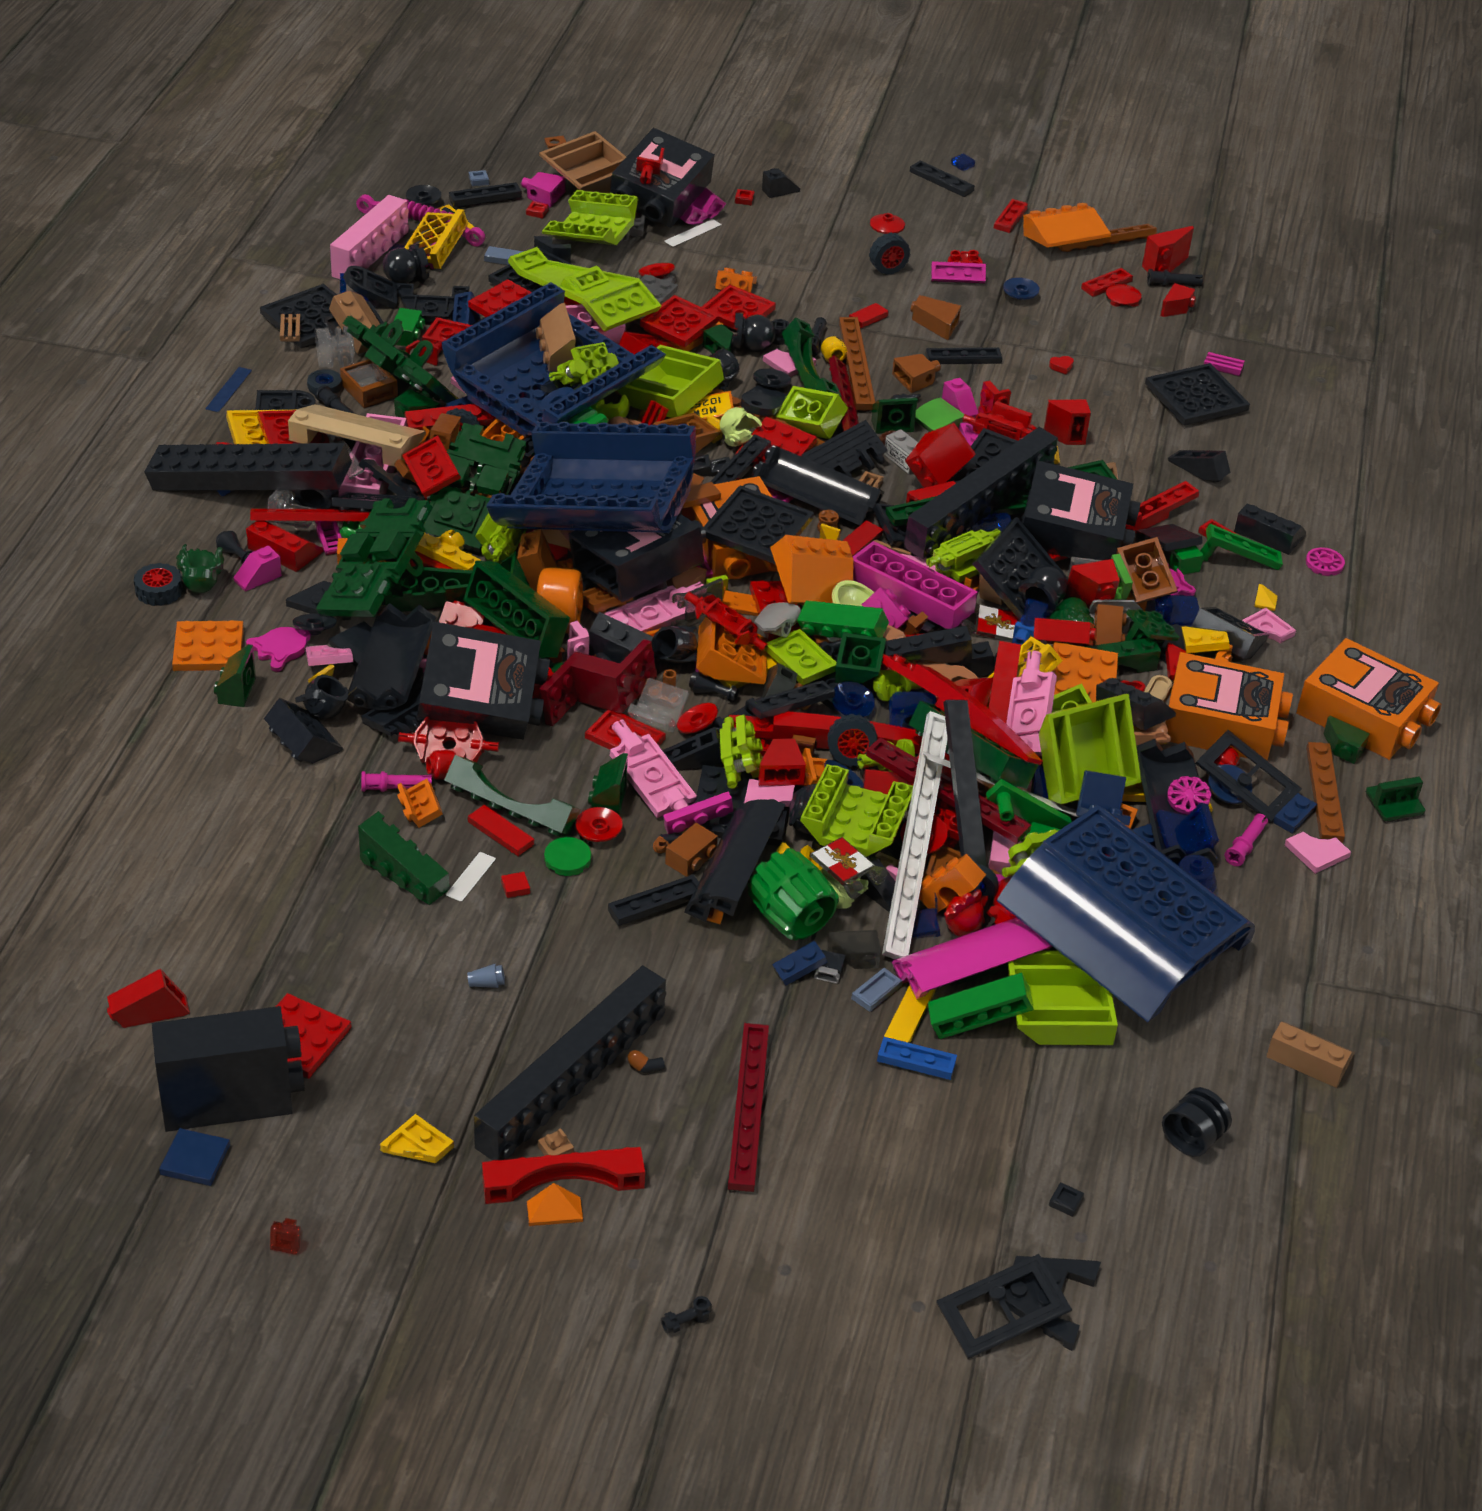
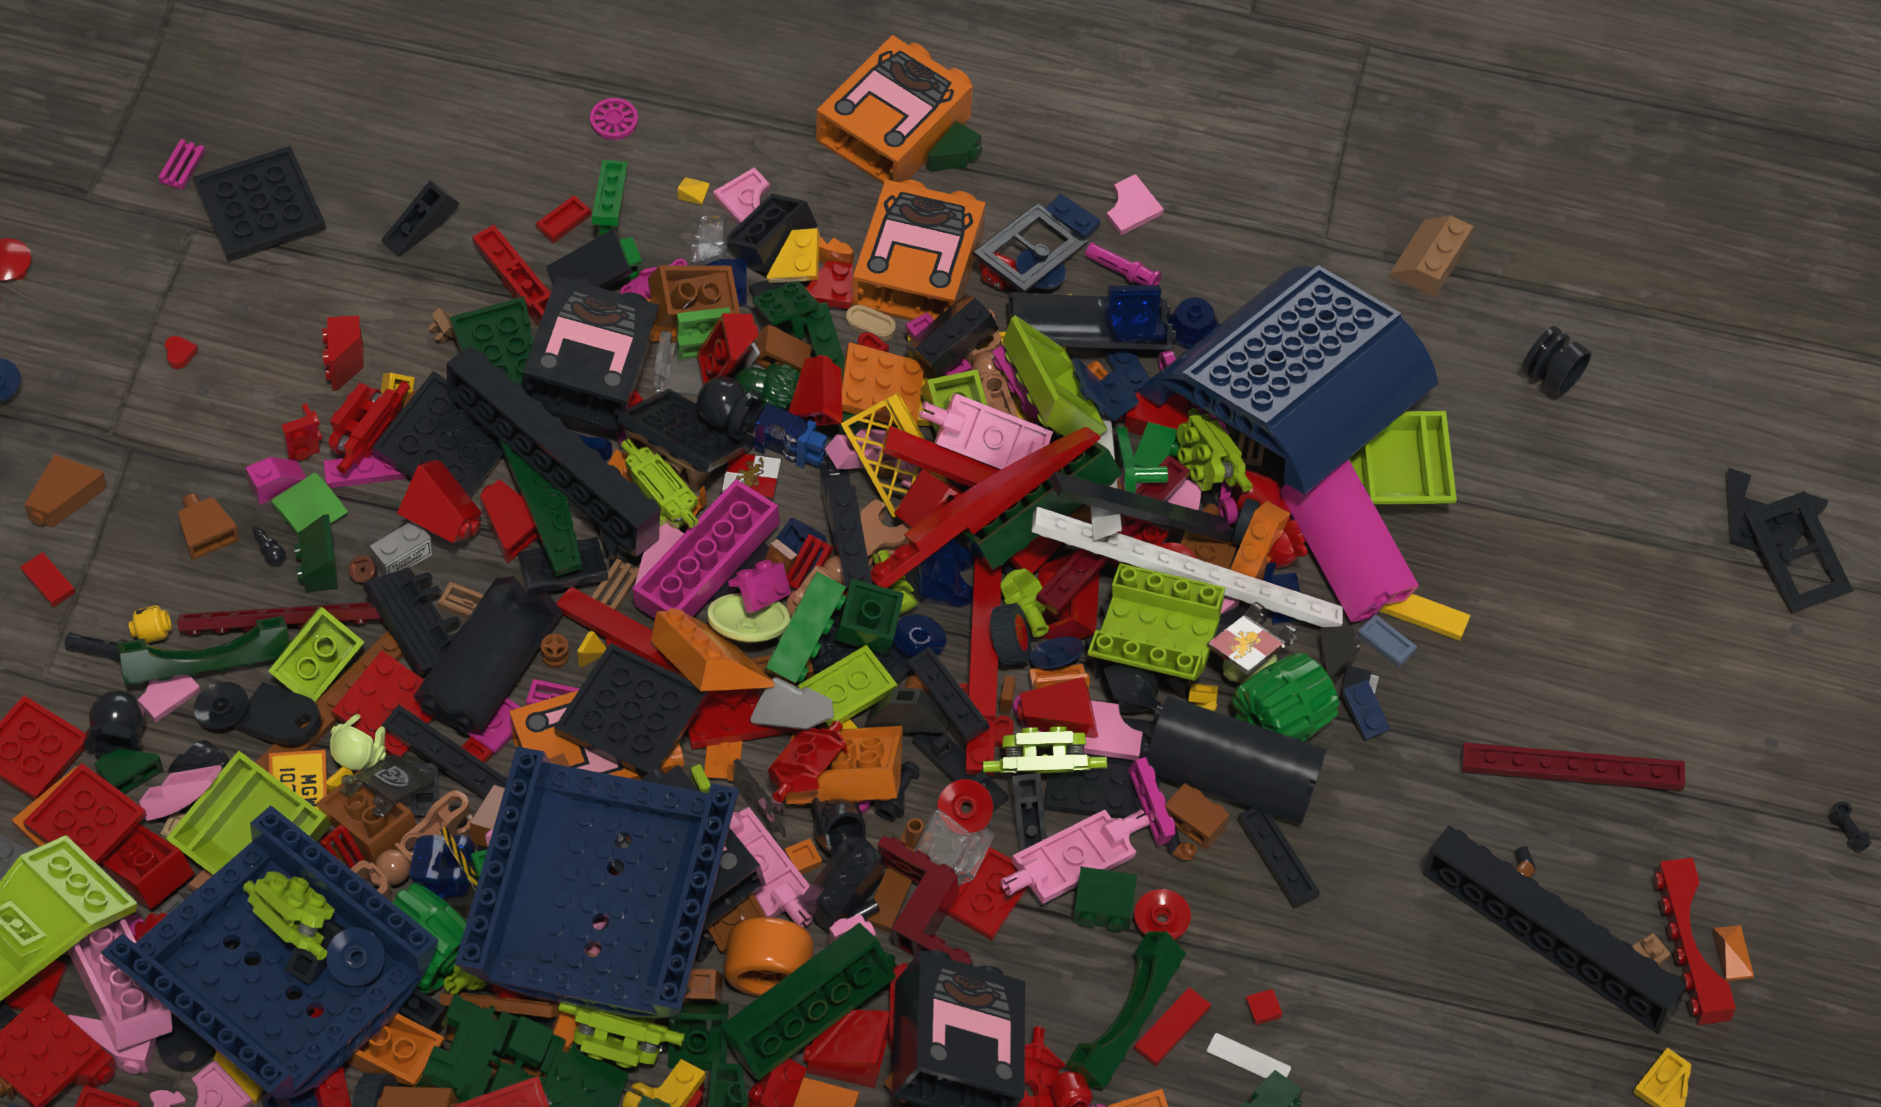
camera: 90 degrees left, 15 degrees up
(488, 976) = (1419, 1025): sand blue cone -> none
(556, 337) = (217, 951): medium nougat slope -> none
(567, 856) = (1211, 952): green tile -> none
(698, 347) = (177, 791): none -> bright pink slope
(711, 439) = (390, 780): none -> clear smoke flag
(779, 325) = (95, 687): black wheel -> none
(857, 363) = (177, 598): dark orange plate -> none
(917, 1058) = (1487, 607): blue plate -> none
(980, 1005) = (1430, 532): green brick -> none
(987, 355) = (154, 468): black tile -> none
(1066, 1199) = (1650, 491): black tile -> none
(1178, 300) = (30, 195): red slope -> none
(1188, 794) = (1077, 306): dark pink wheel -> none
(1208, 593) = (711, 239): none -> clear slope
(1268, 529) = (556, 163): black slope -> none
(1325, 791) = (1034, 183): dark orange plate -> none
(1397, 798) = (1046, 118): dark green bracket -> none

